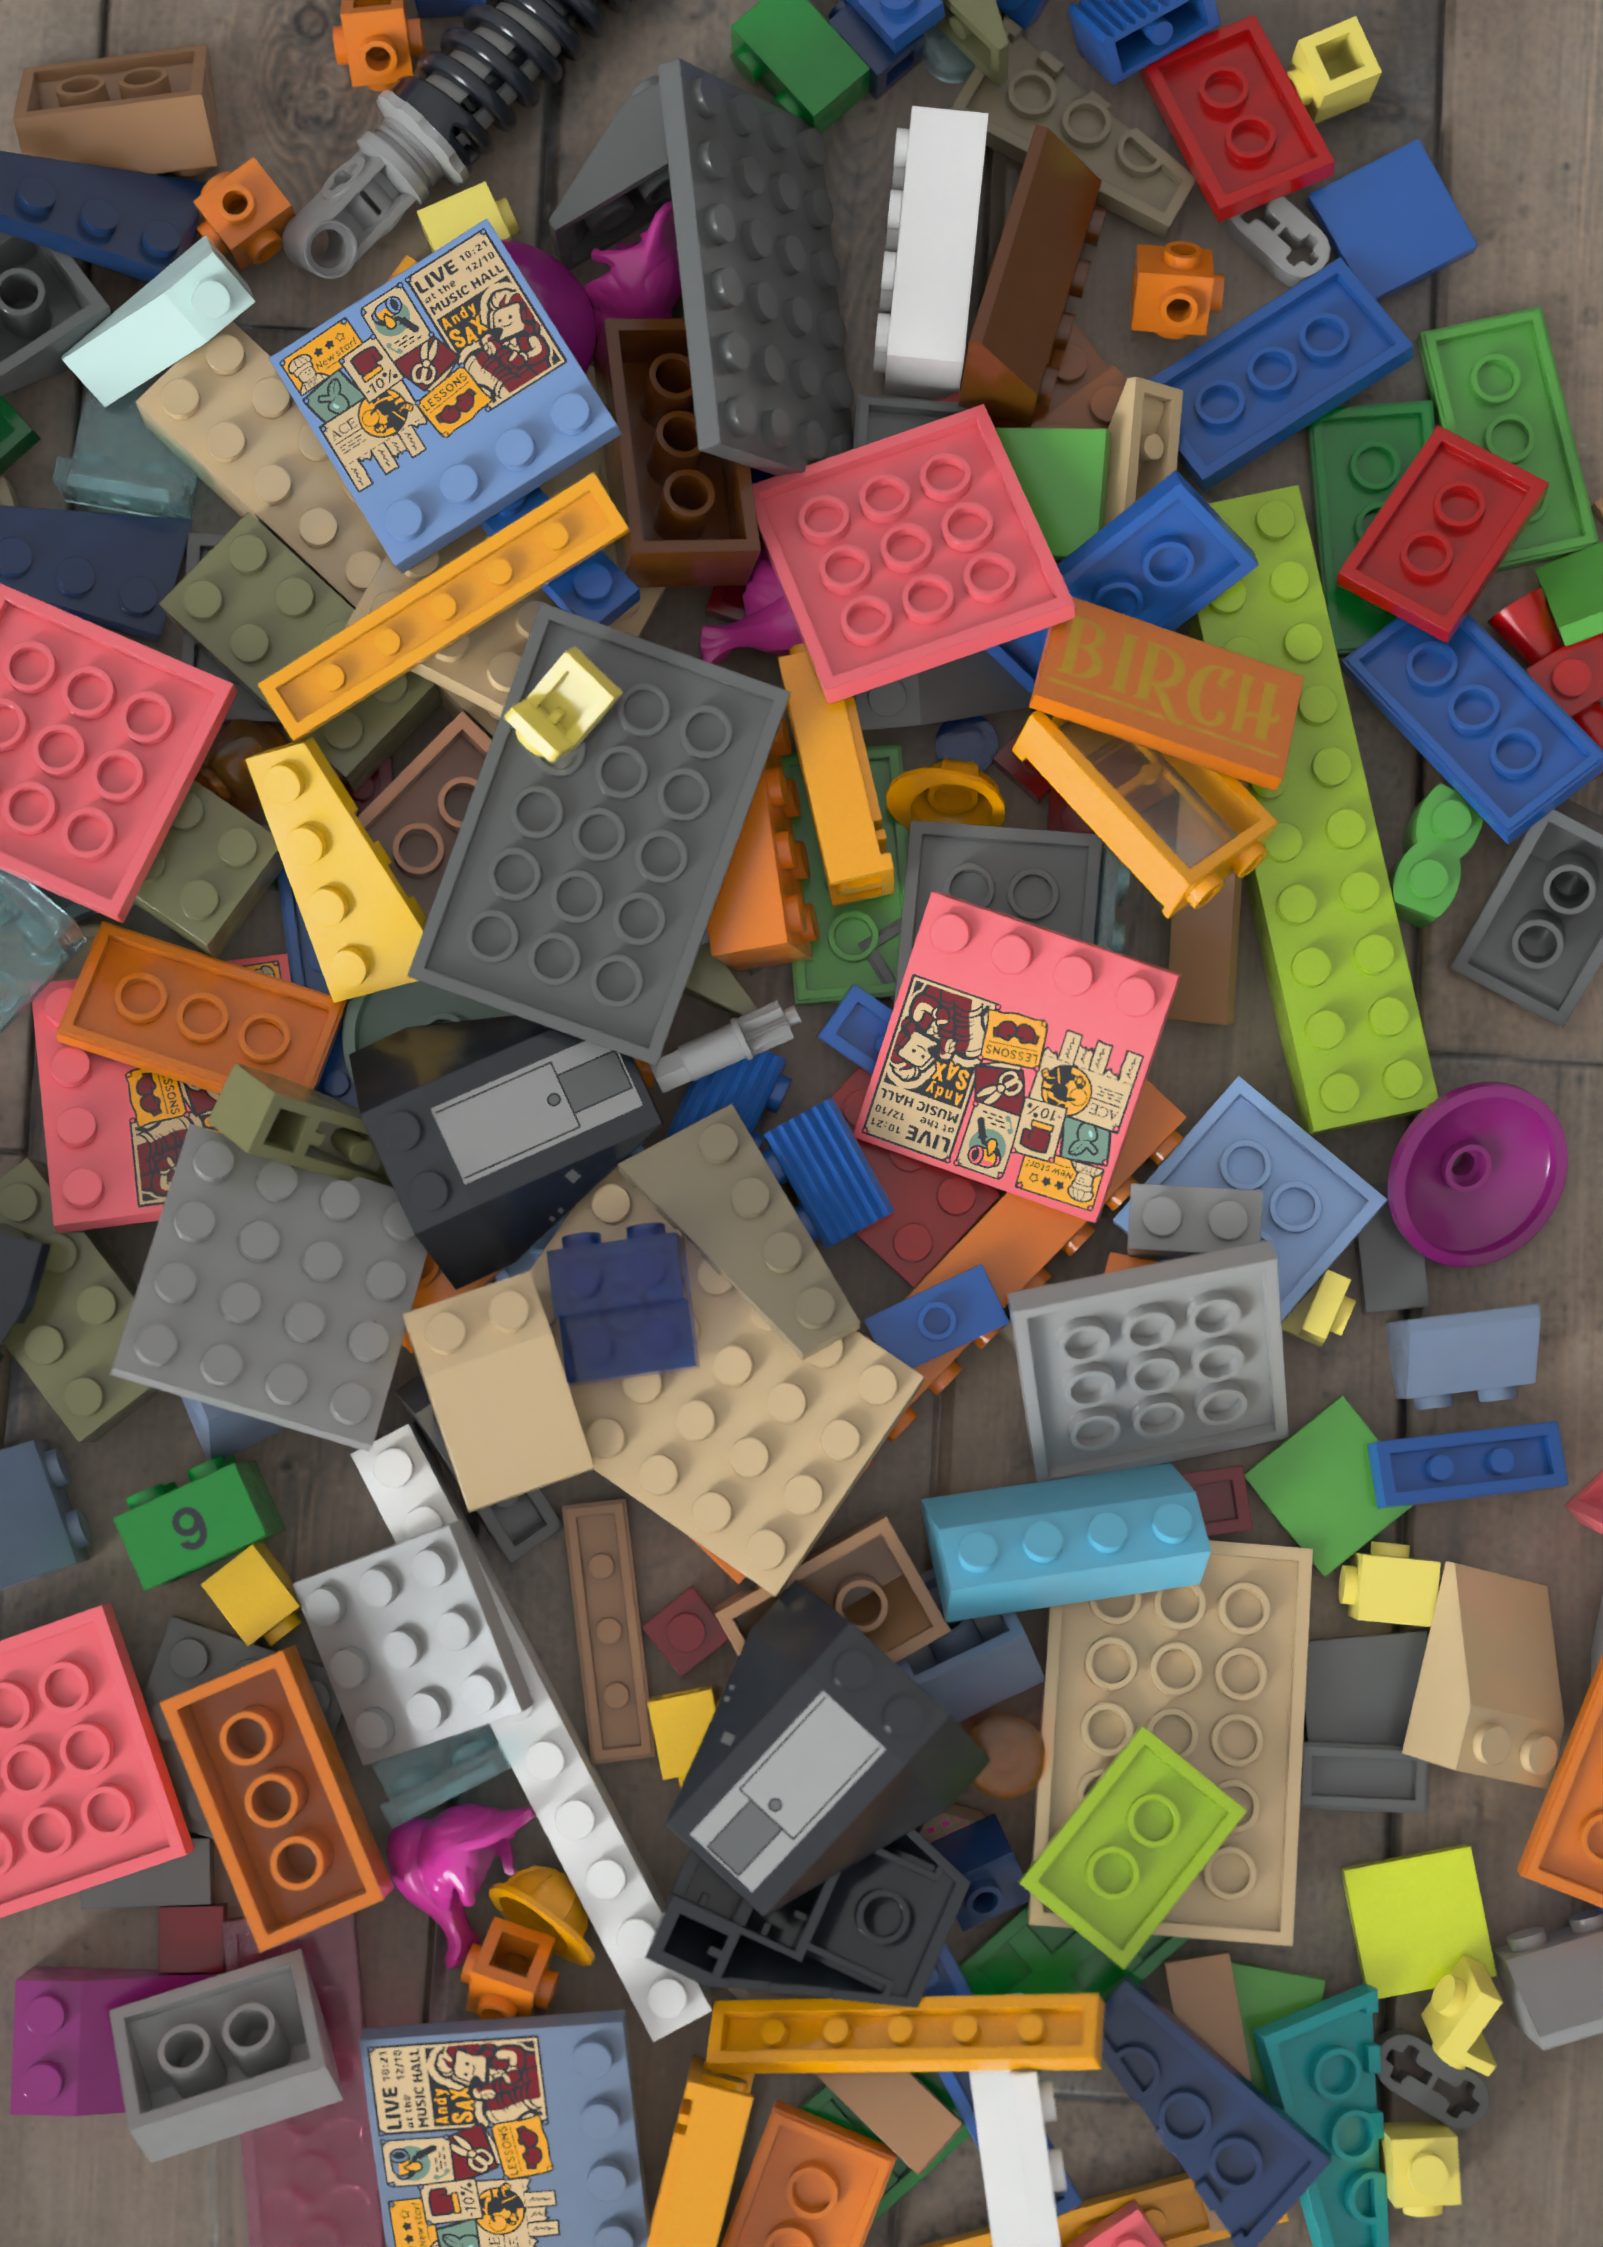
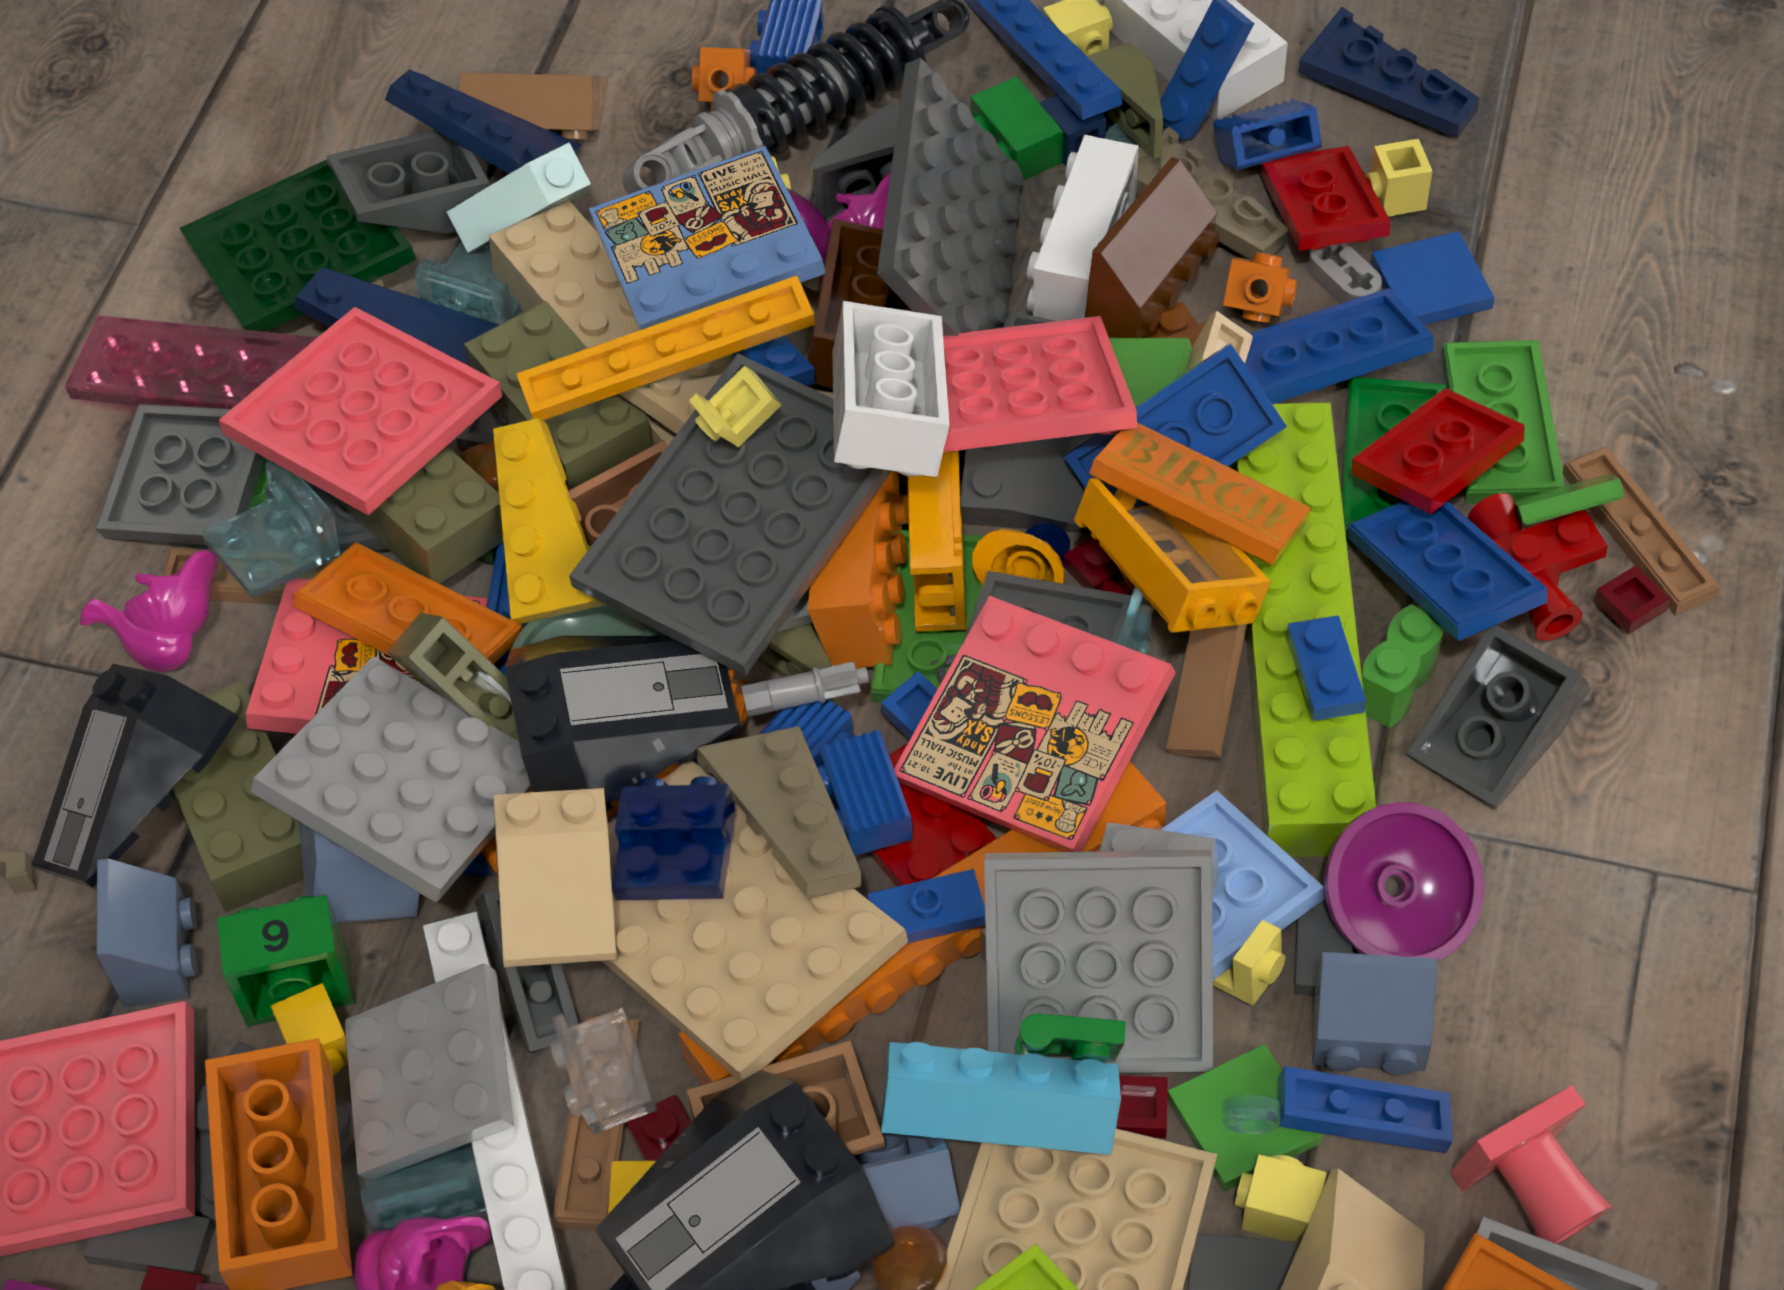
camera: 15 degrees right, 30 degrees down
(244, 214) = (603, 155): orange brick -> none
(604, 1584) = (603, 1070): none -> clear bracket
(759, 649) = (889, 390): none -> white brick
(1156, 1470) = (1071, 1037): none -> green plate
(1346, 1503) = (1251, 1114): none -> clear light blue tile
(1353, 910) = (1325, 668): none -> blue plate

